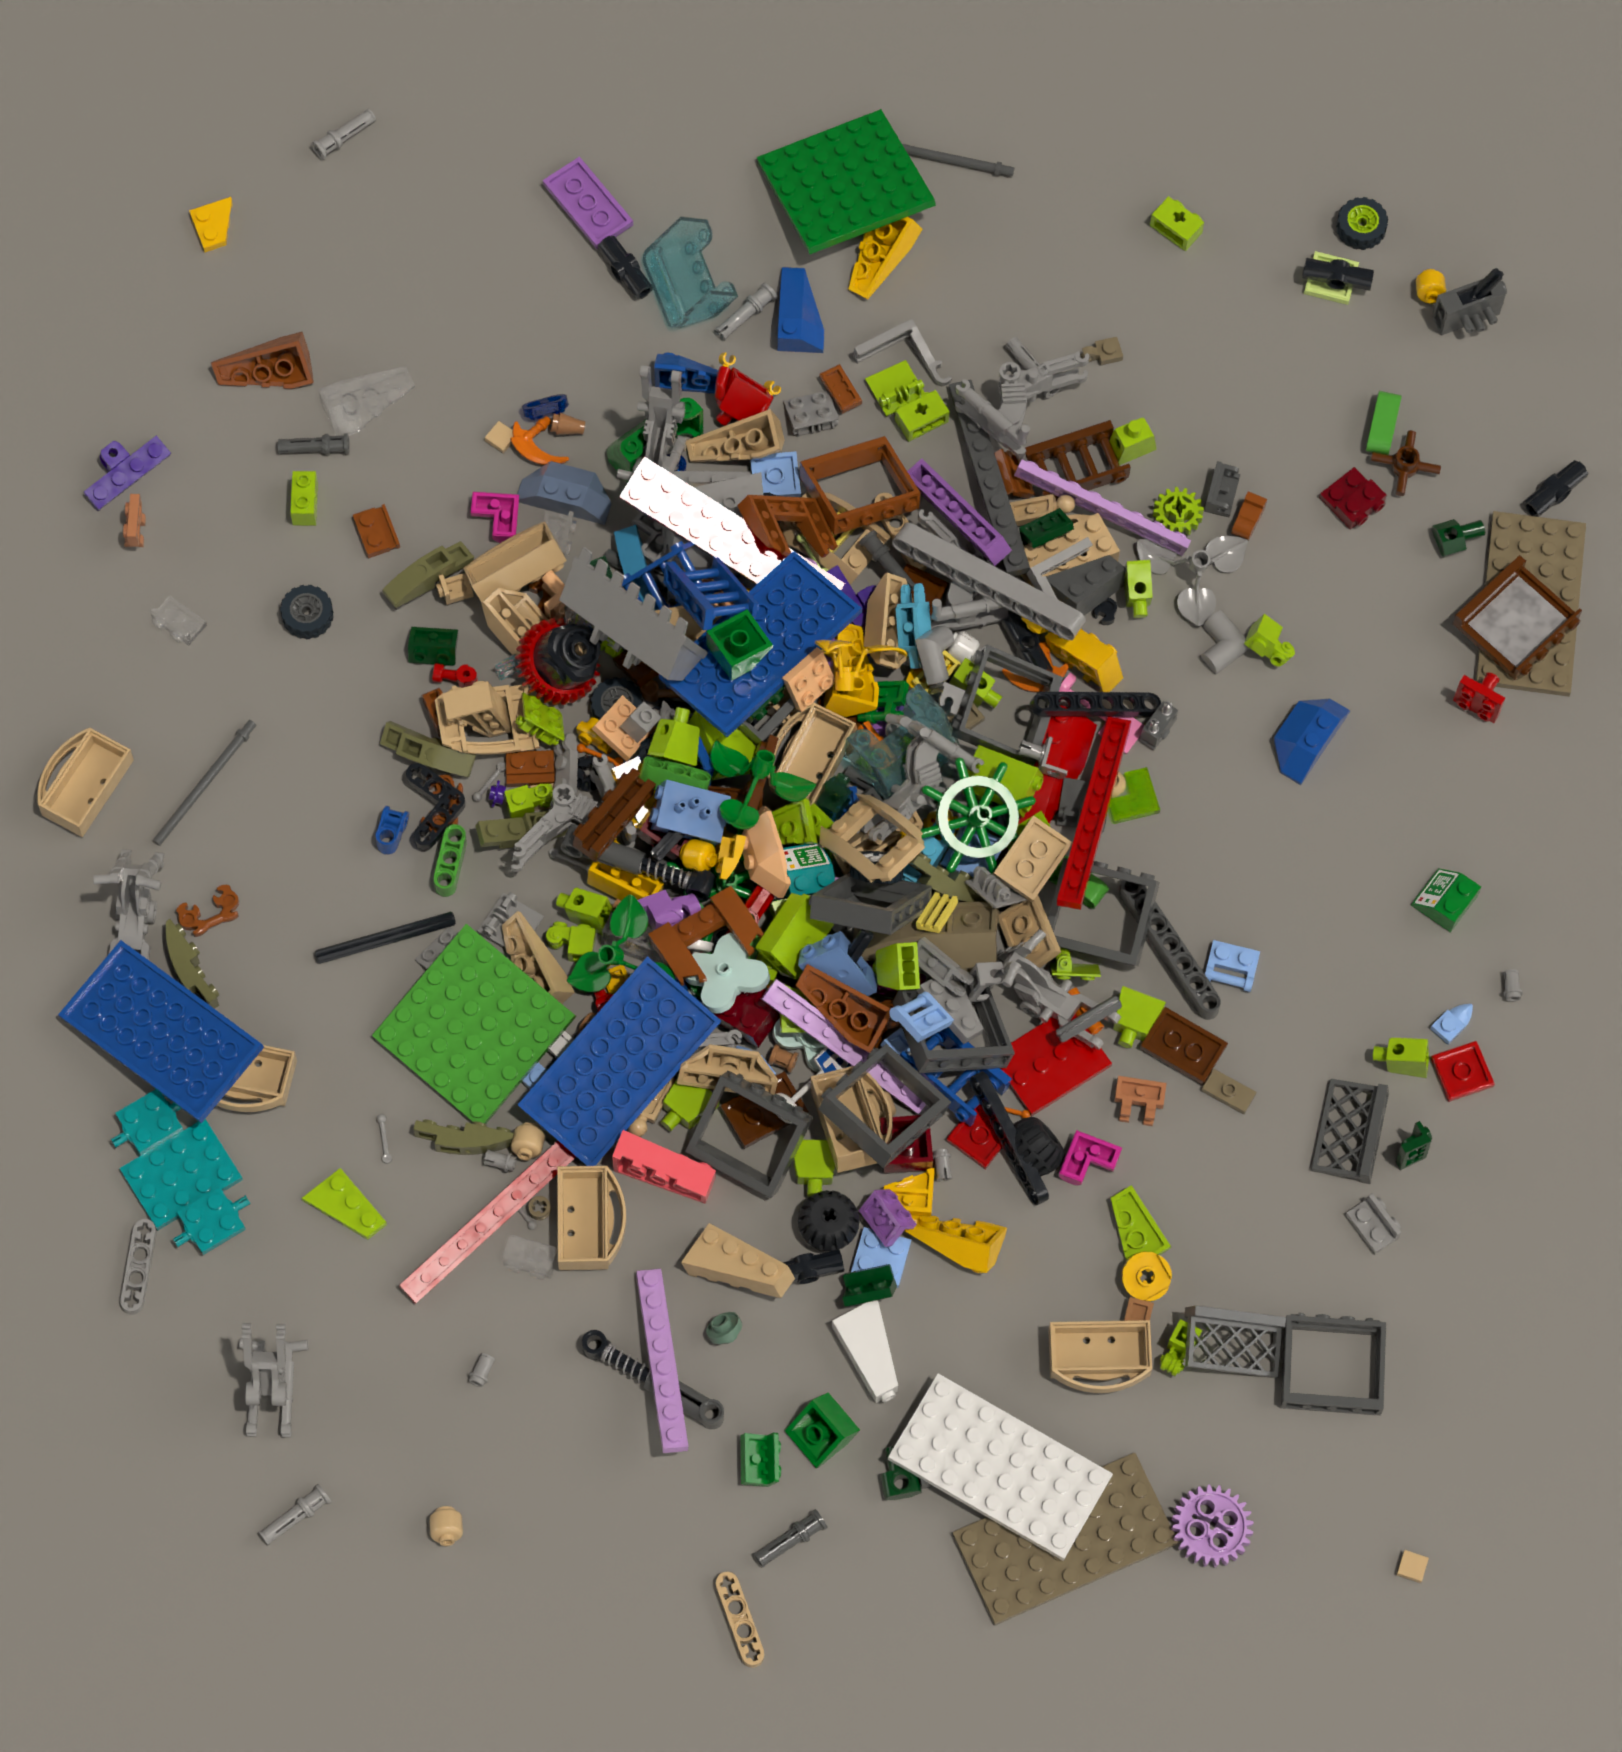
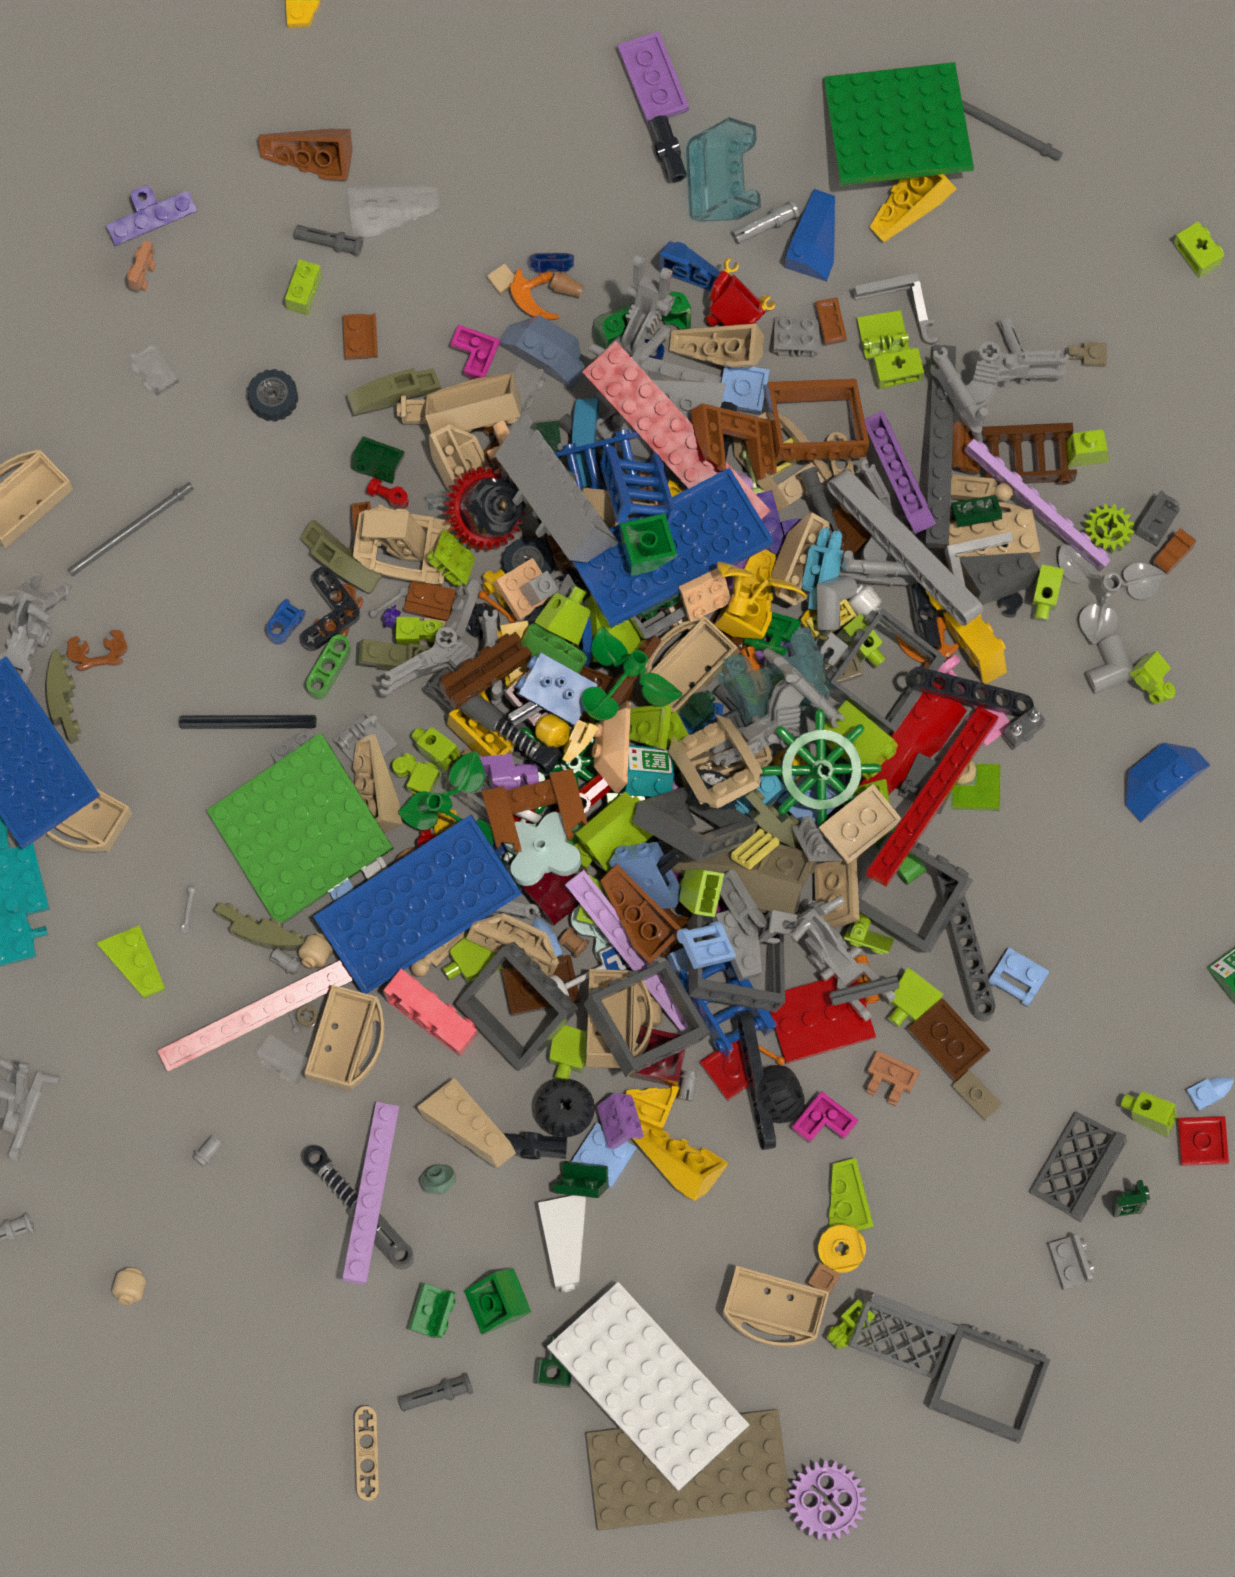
camera: 20 degrees right, 5 degrees up
(1041, 753) = (900, 725): light grey bracket -> none

